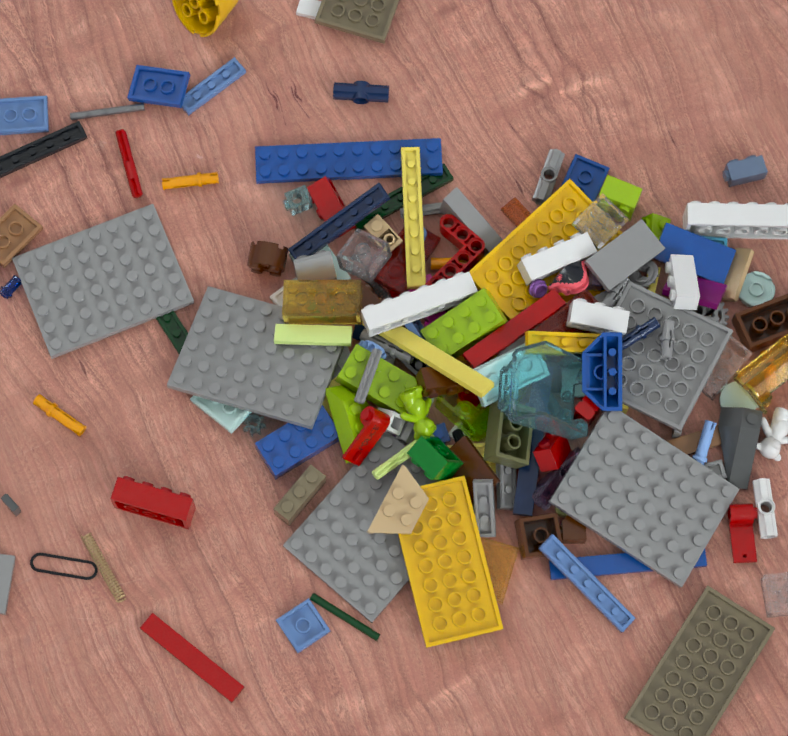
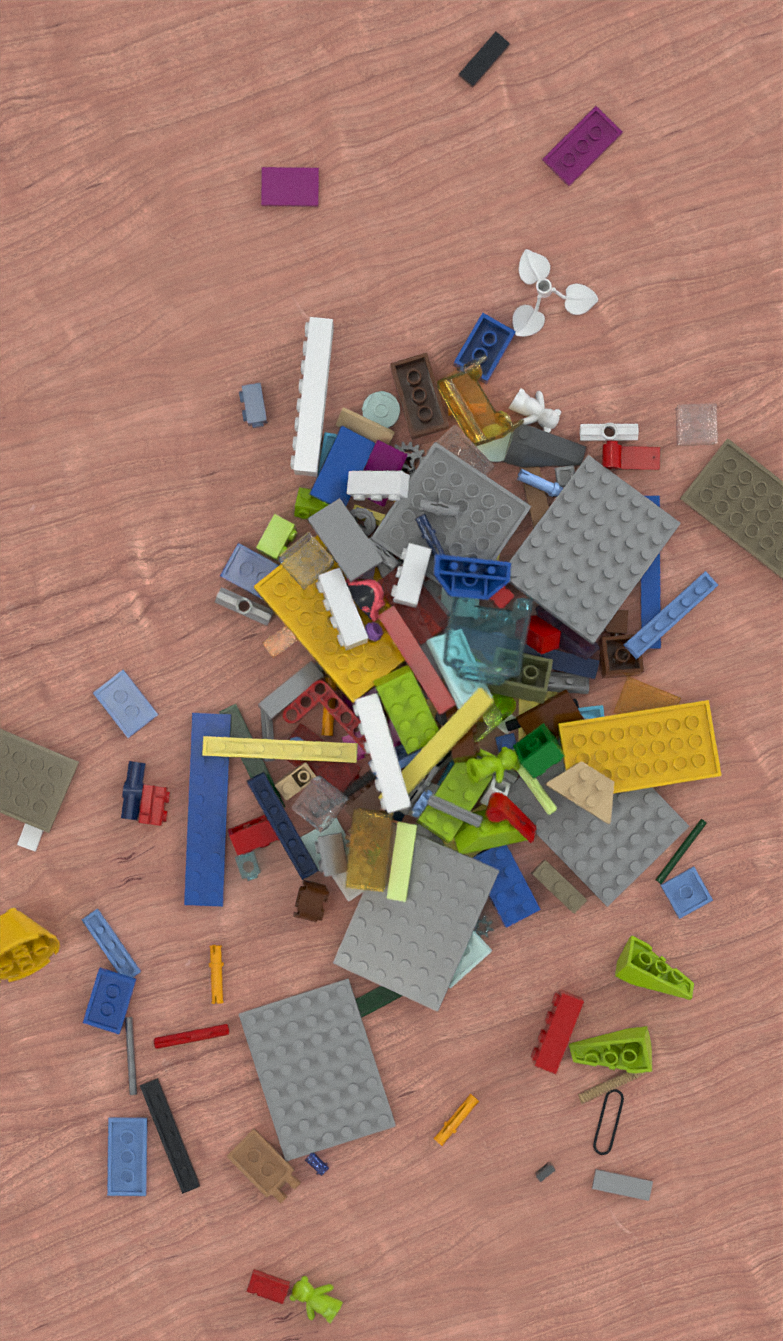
camera: 80 degrees left, 15 degrees up
(138, 573) = (622, 1049): none -> lime wedge
(192, 657) = (709, 1002): red tile -> none
(221, 590) = (645, 969): none -> lime wedge
(348, 111) = (153, 805): none -> red brick
(443, 80) = (125, 703): none -> medium blue tile
(484, 507) = (589, 706): light grey tile -> none
(567, 341) = (434, 615): yellow gear -> none

